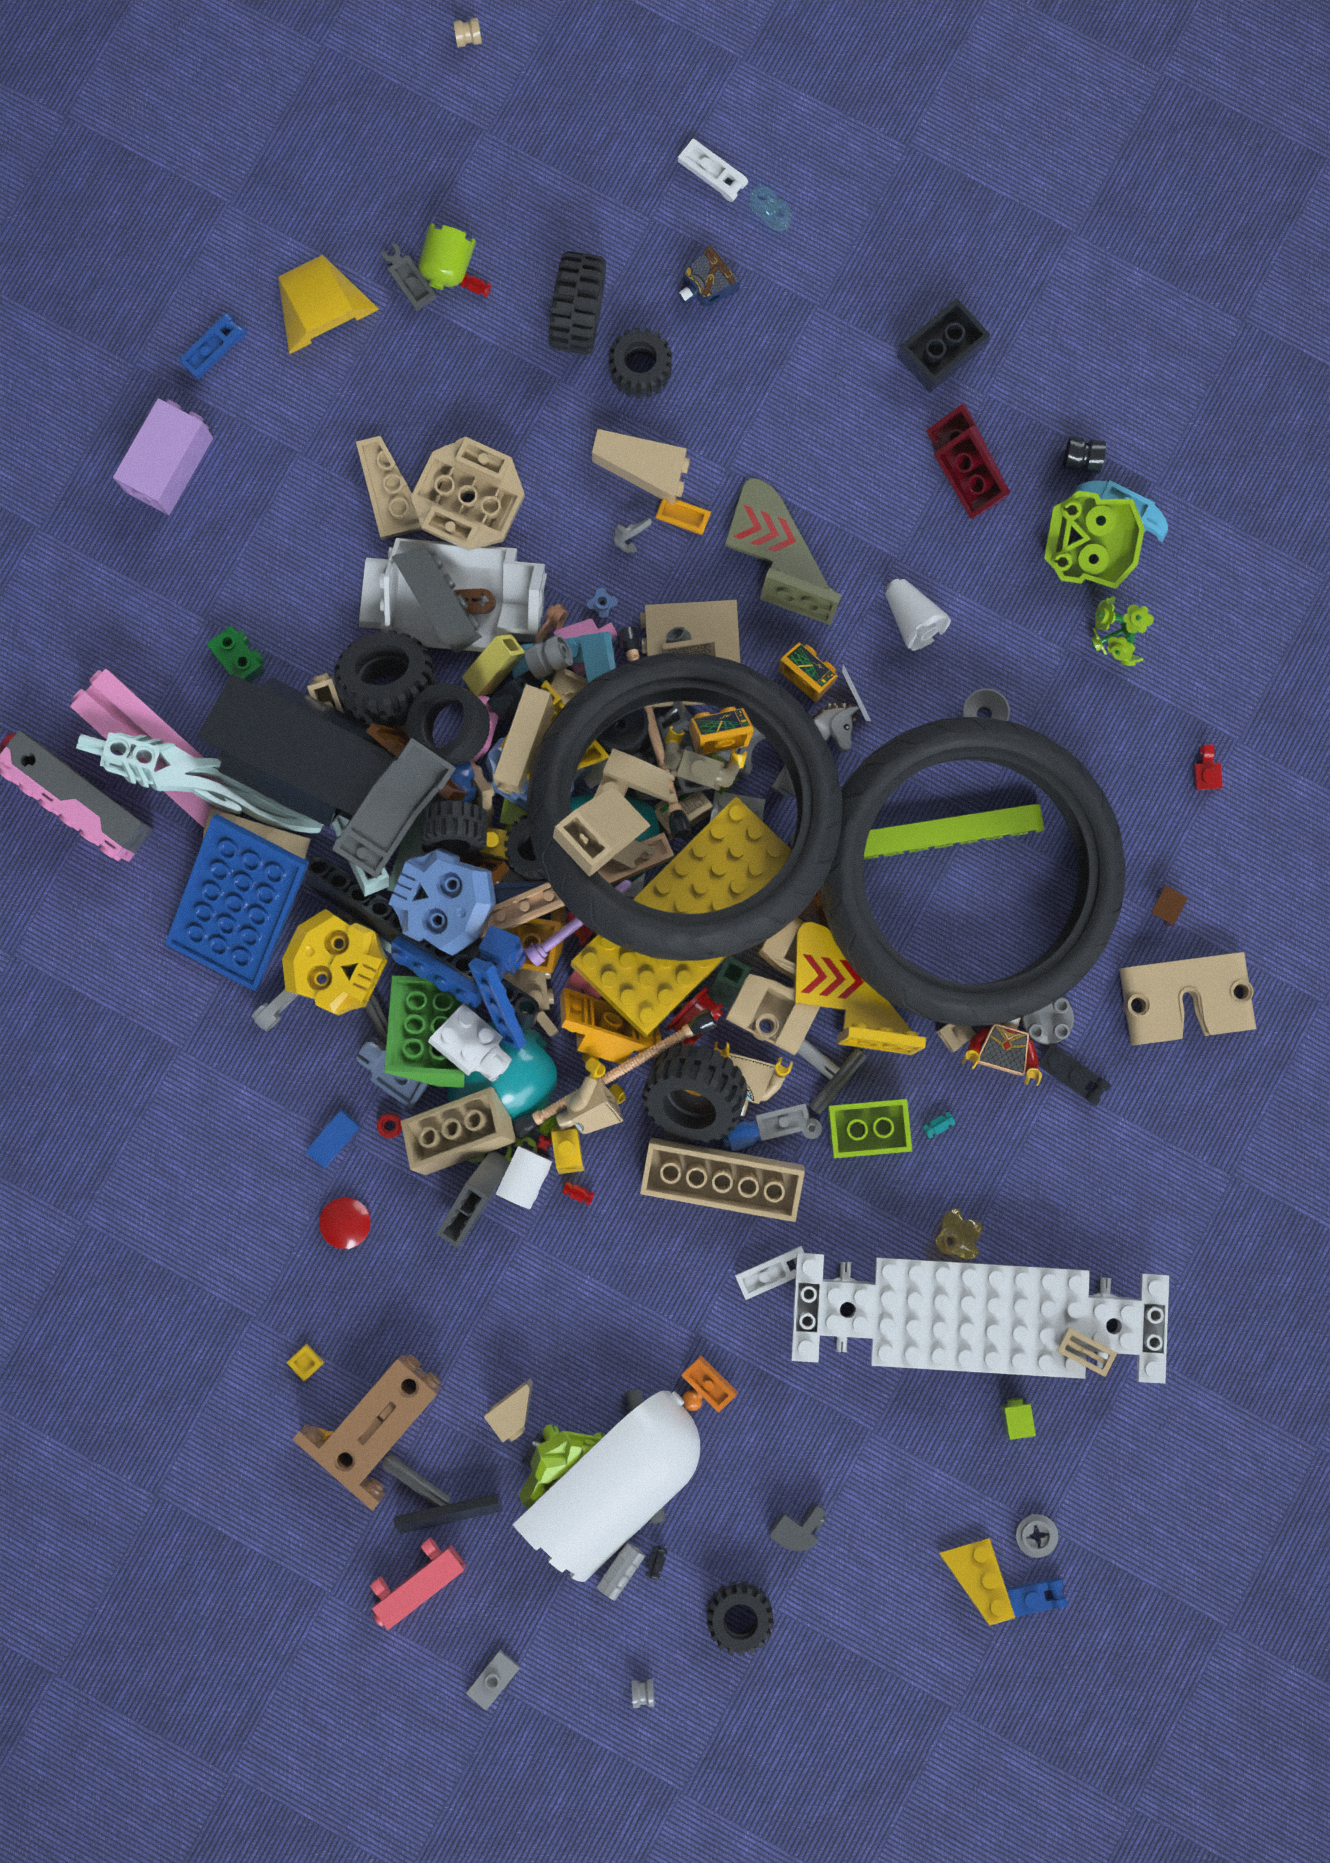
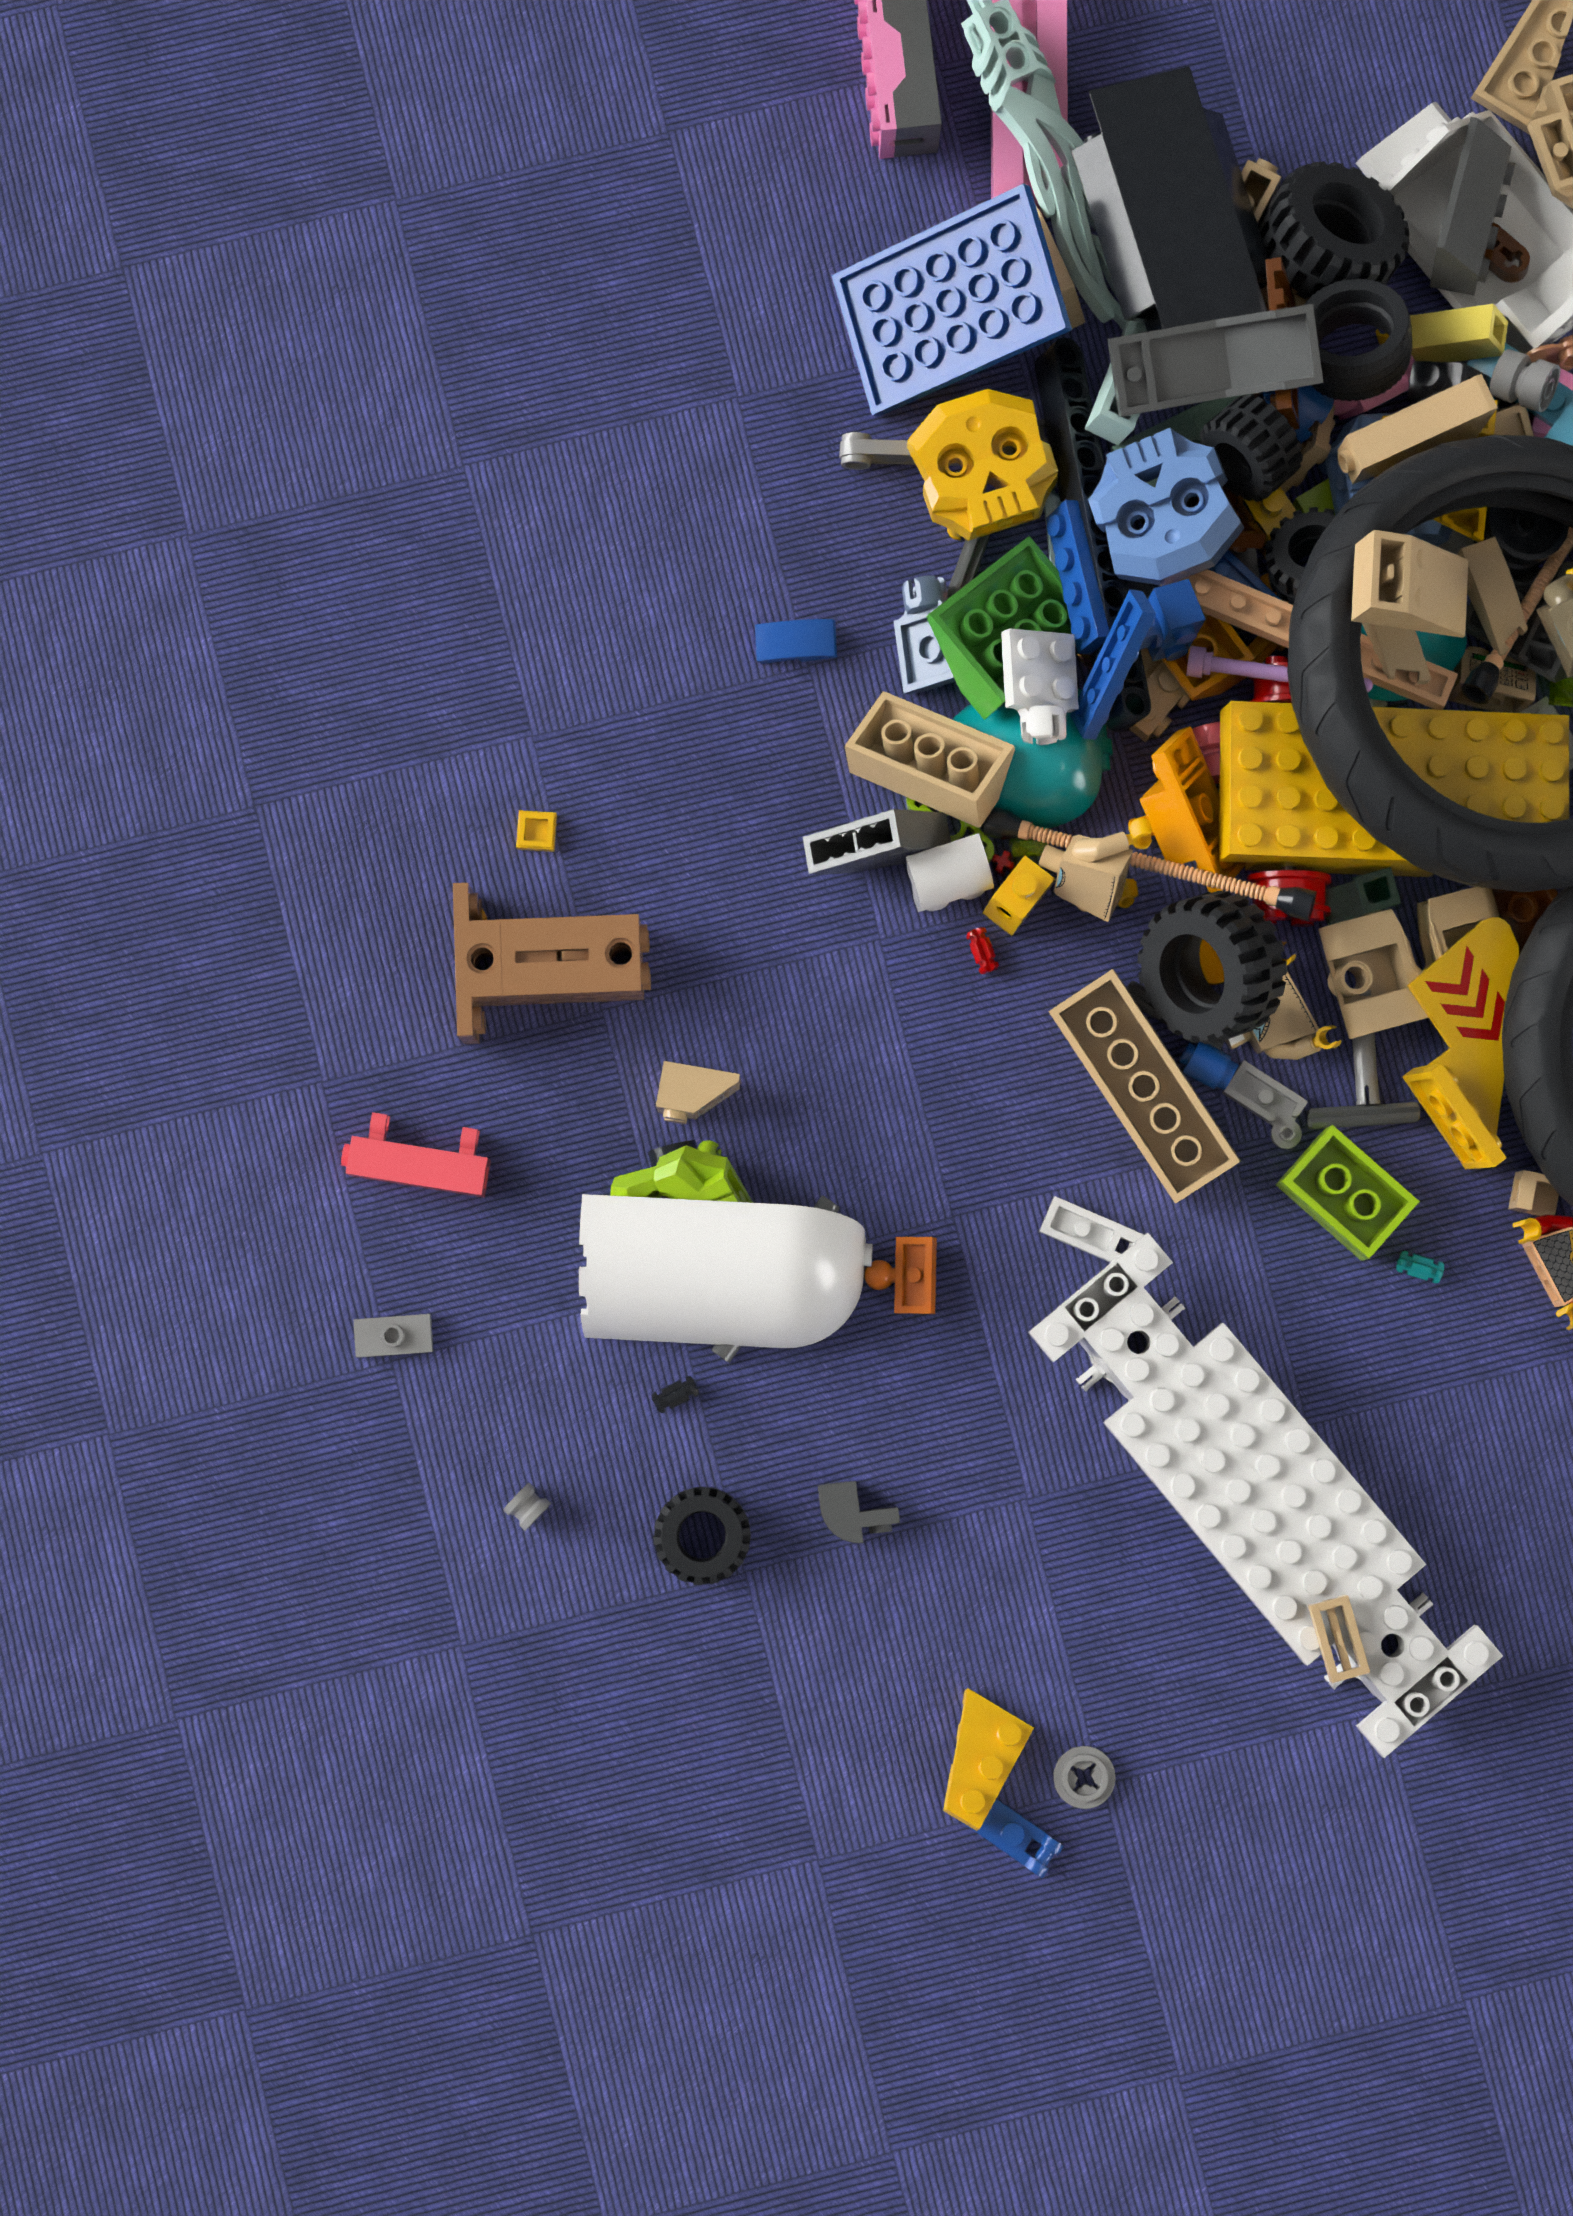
camera: 45 degrees right, 0 degrees up
(235, 655) = (1206, 50): green brick -> none
(345, 1223) = (720, 735): red dish -> none
(381, 1125) = (861, 675): red plate -> none
(415, 1481) = (522, 1062): dark grey axle -> none
(448, 1513) = (521, 1125): black tile -> none
(547, 1024) = (1129, 750): tan tile -> none
(621, 1571) = (632, 1364): light grey axle -> none
(962, 1233) = (1328, 1397): clear yellow plate -> none
(1018, 1419) = (1189, 1640): lime brick -> none

